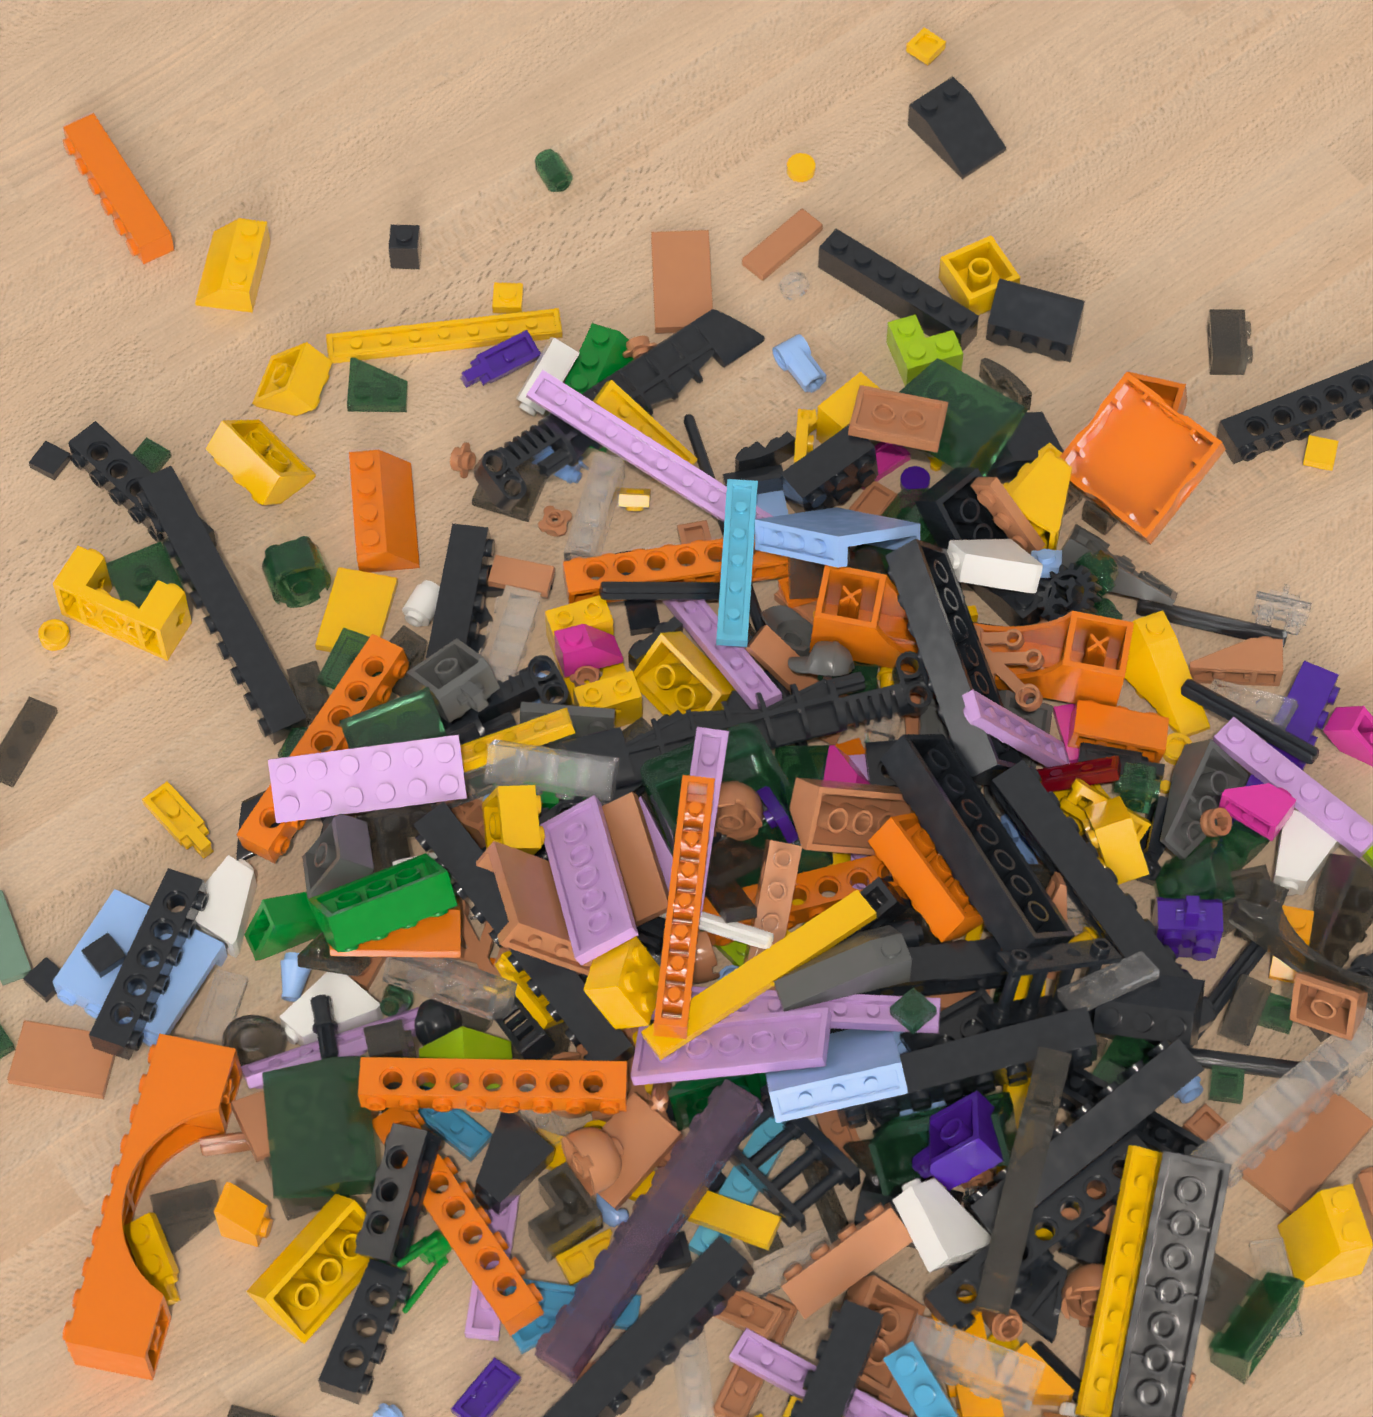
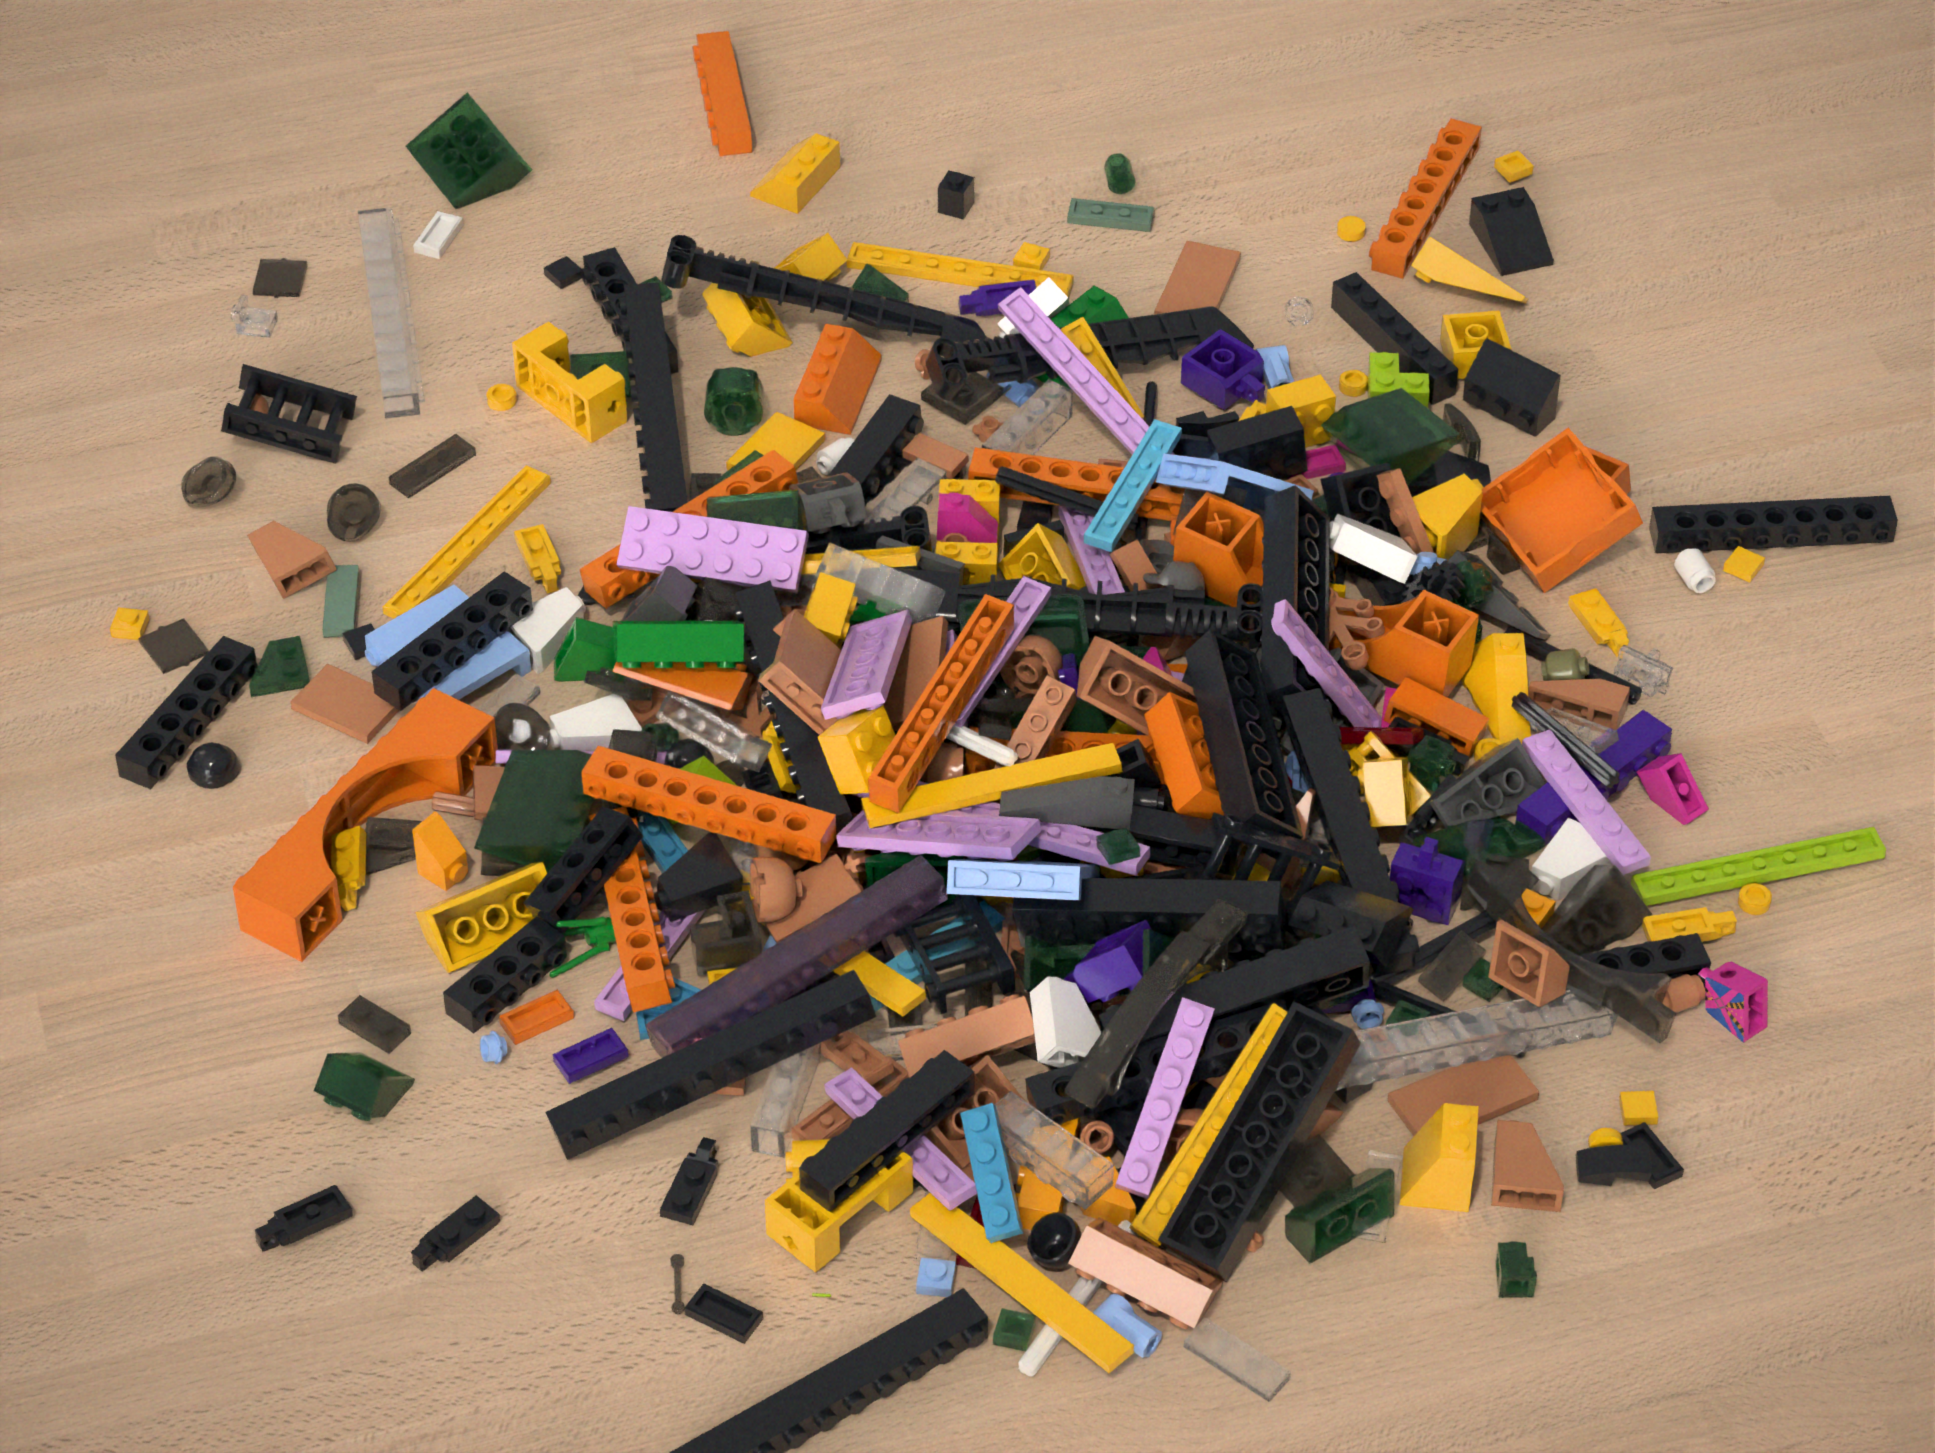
camera: 20 degrees right, 15 degrees down
(98, 827) = (469, 541): none -> yellow tile
(104, 955) = (415, 624): black tile -> none
(292, 423) = (755, 280): none -> black piece
(292, 977) = (581, 693): light blue cone -> none
(324, 1025) = (585, 728): black axle -> none
(412, 1366) = (536, 1017): none -> orange tile
(562, 221) = (1110, 215): none -> sand green tile
(634, 498) = (1069, 430): yellow plate -> none
(637, 346) = (1128, 310): nougat plate -> none
(756, 384) = (1224, 370): none -> dark purple hinge
(782, 244) = (1303, 280): nougat tile -> none
(859, 111) = (1425, 198): none -> orange brick
(877, 353) = (1353, 383): none -> yellow tile
(898, 418) = (1335, 413): nougat tile -> none
(915, 191) = (1450, 268): none -> yellow wedge
(1064, 1273) = (1164, 1098): none -> lavender plate
(1109, 982) = (1323, 885): clear tile -> none
(1208, 825) = (1500, 803): nougat bush -> none
(1212, 634) = (1564, 665): none -> olive head
(1217, 561) = (1599, 619): none -> yellow hinge
(1227, 342) = (1693, 454): clear smoke brick -> none
(1259, 807) = (1539, 804): dark pink slope -> none
(1282, 477) = (1695, 570): none -> white brick

